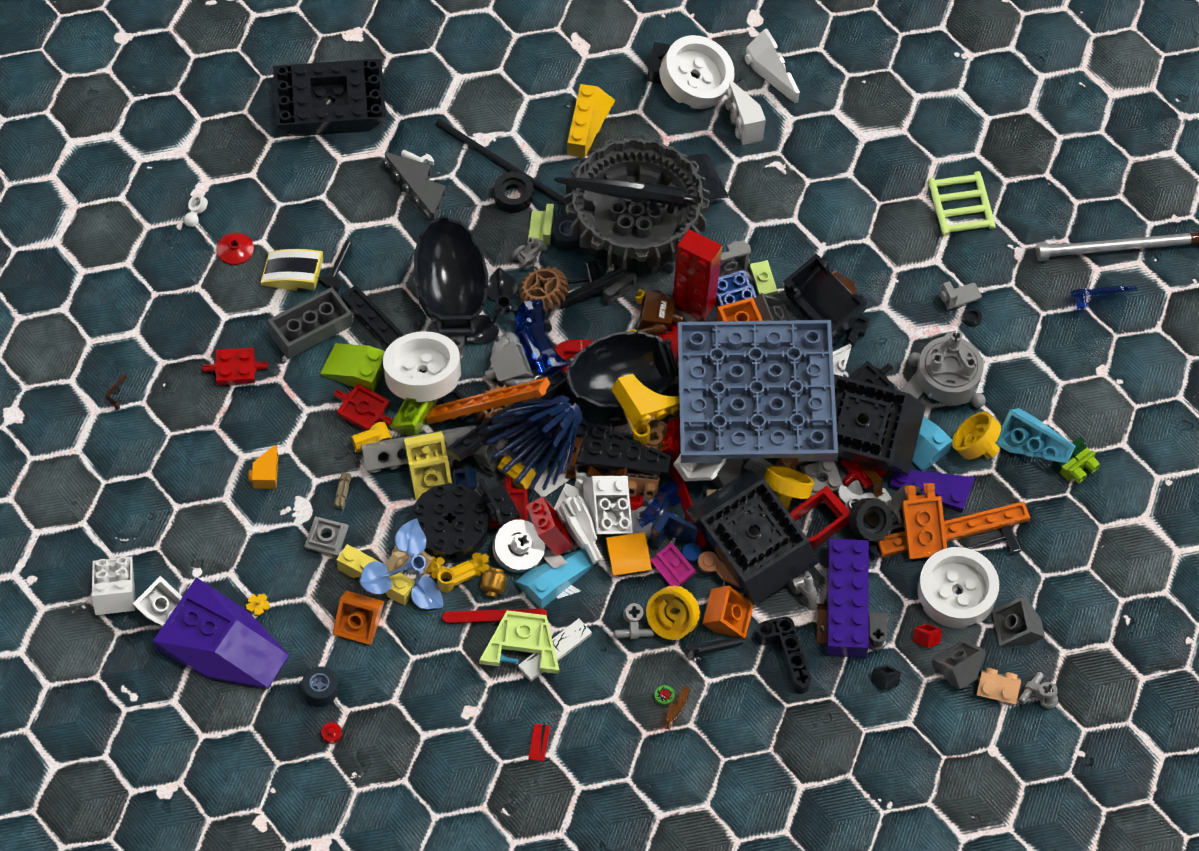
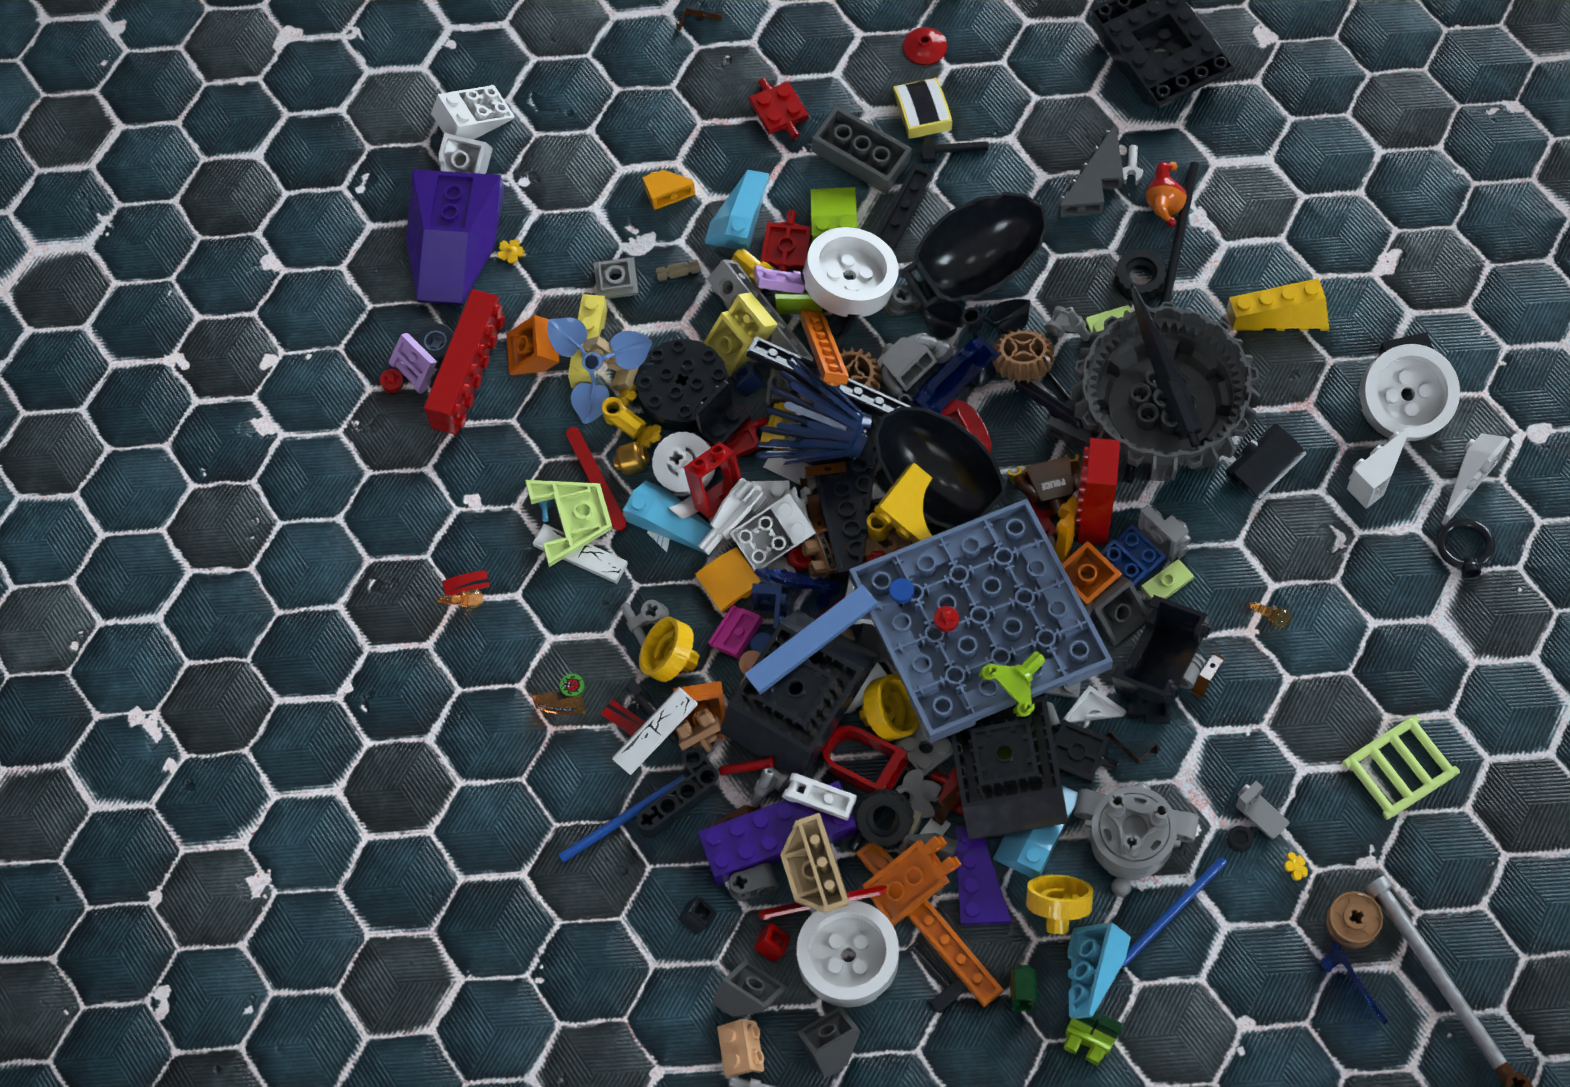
camera: 75 degrees right, 5 degrees up
(316, 429) = (737, 217): none -> medium azure wedge
(327, 702) = (413, 362): none -> lavender plate
(351, 666) = (465, 362): none -> red brick
(399, 418) = (778, 280): none -> lavender plate
(456, 148) = (1165, 194): none -> orange piece
(554, 745) = (471, 598): none -> clear orange bar
(699, 310) = (1065, 529): none -> light orange slope
(706, 670) = (622, 717): none -> red sticker
(717, 426) = (901, 591): none -> blue piece
(725, 501) = (811, 639): none -> medium blue tile
(734, 645) = (654, 730): none -> white tile
(748, 616) = (700, 735): none -> medium nougat hips
(752, 407) = (946, 619): none -> red tile
(787, 597) = (746, 766): none -> red piece
(787, 700) = (616, 822): none -> blue piece
(821, 223) = (1280, 616): none -> clear orange bar
(824, 382) = (1016, 681): none -> lime axle
(837, 98) = (1469, 566): none -> black piece
(841, 551) = (820, 796): none -> white plate
(878, 356) = (1109, 734): none -> reddish brown piece
(894, 575) = (813, 867): none -> tan wedge
(916, 585) = (796, 907): none -> red piece
(1003, 371) = (1174, 909): none -> blue piece
(1007, 293) = (1295, 864): none -> yellow plant
(1031, 485) = (1023, 989): none -> dark green brick
(1059, 275) = (1348, 933): none -> medium nougat wheel

